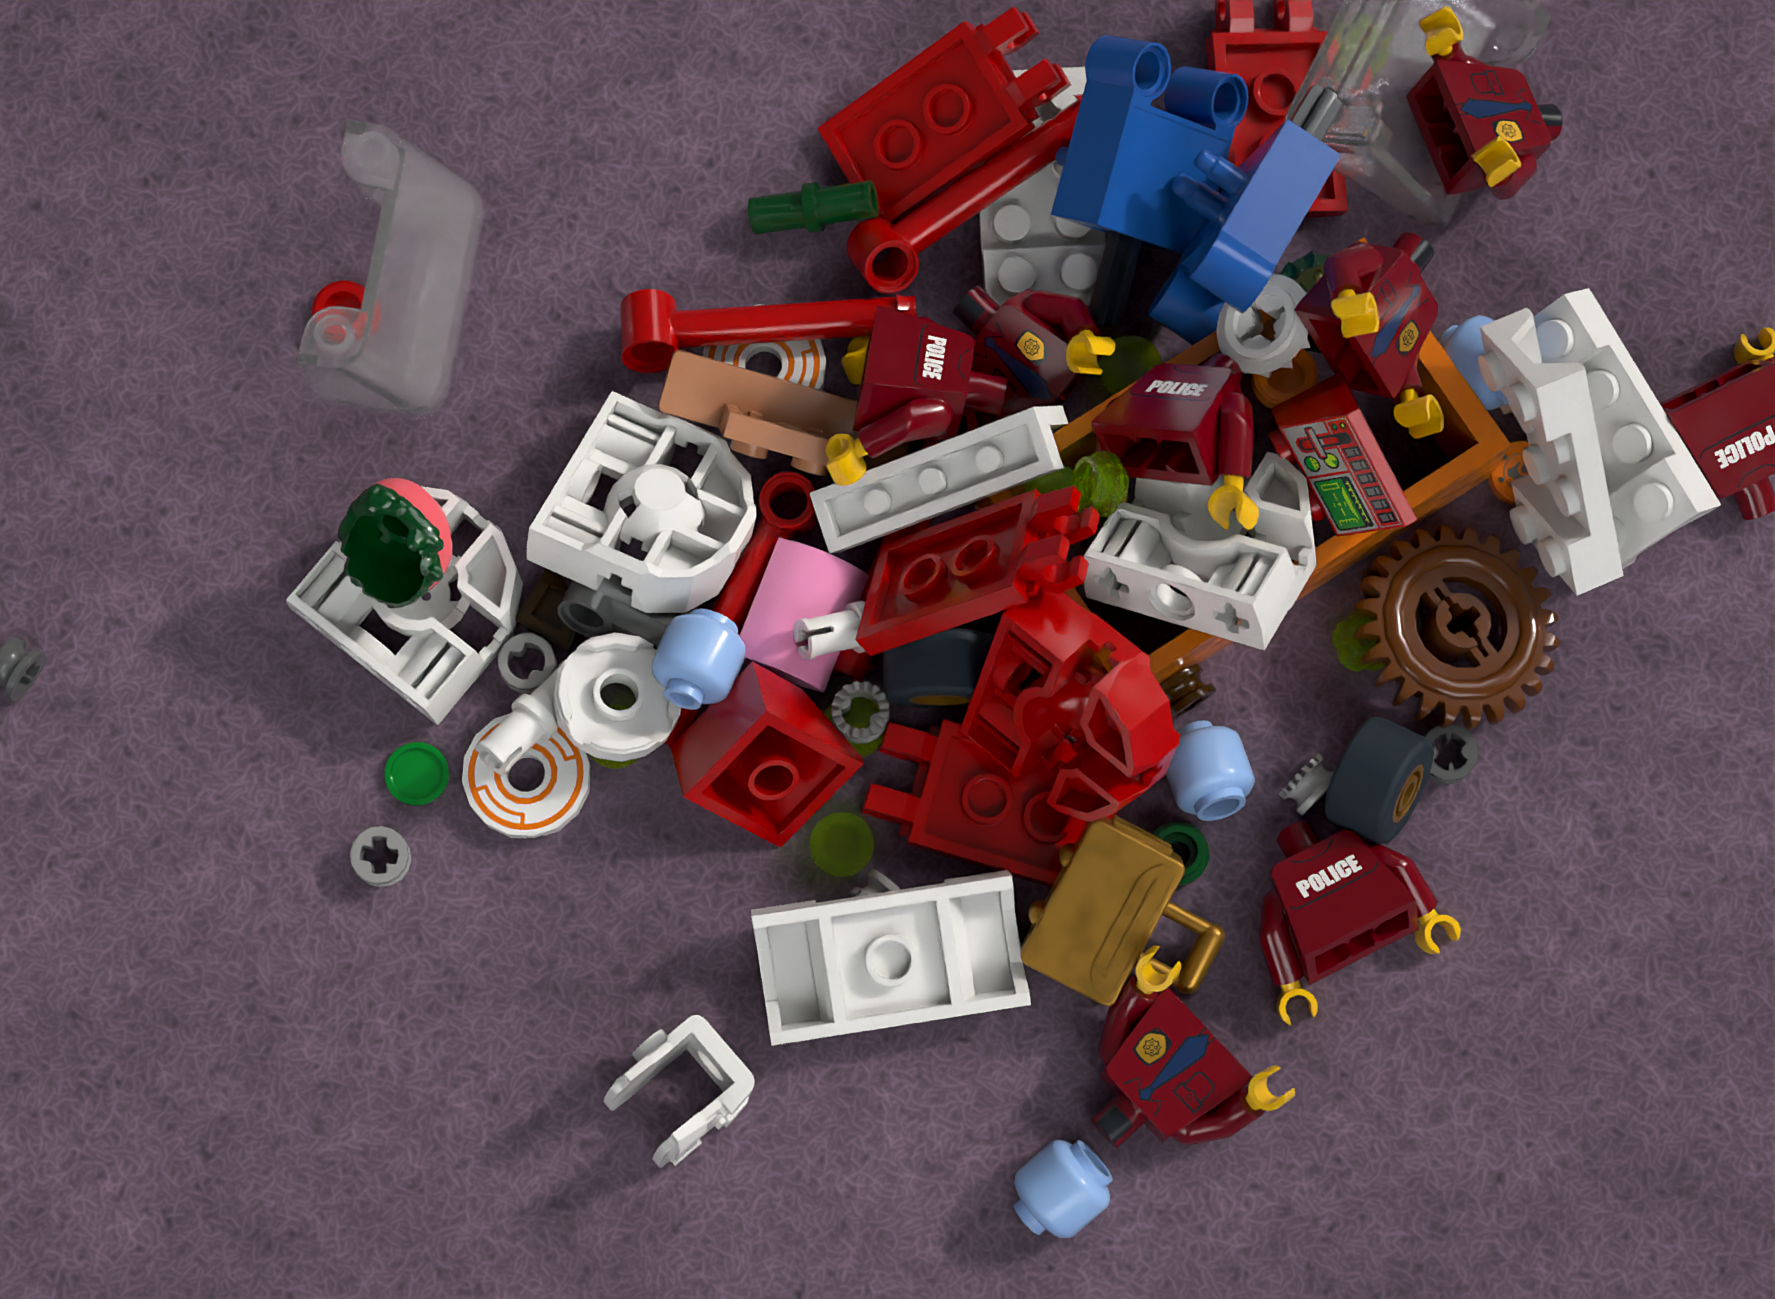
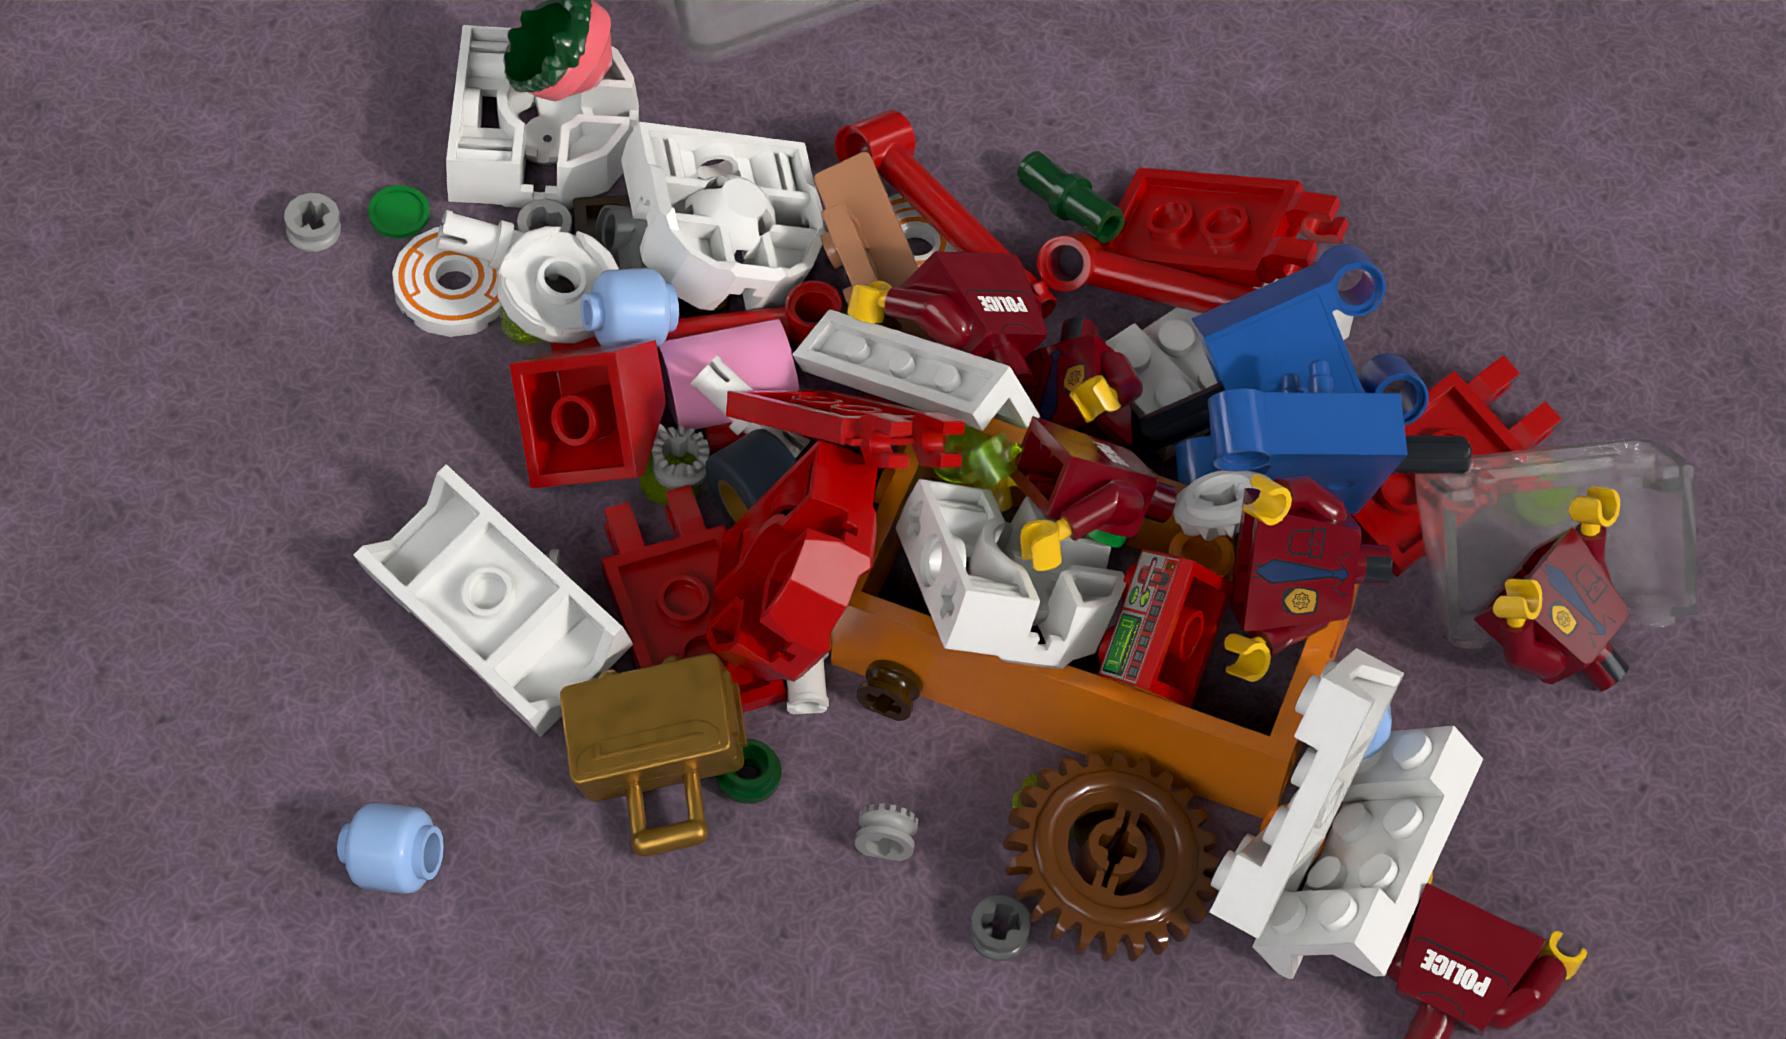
camera: 50 degrees right, 20 degrees down
(713, 1056) = (260, 481): white piece -> none
(841, 844) = (565, 524): clear neon green plate -> none
(1172, 1069) = (557, 862): dark red torso -> none
(1210, 771) = (835, 745): light blue head -> none
(1339, 905) = (793, 906): dark red torso -> none
(1379, 780) = (927, 867): black wheel -> none

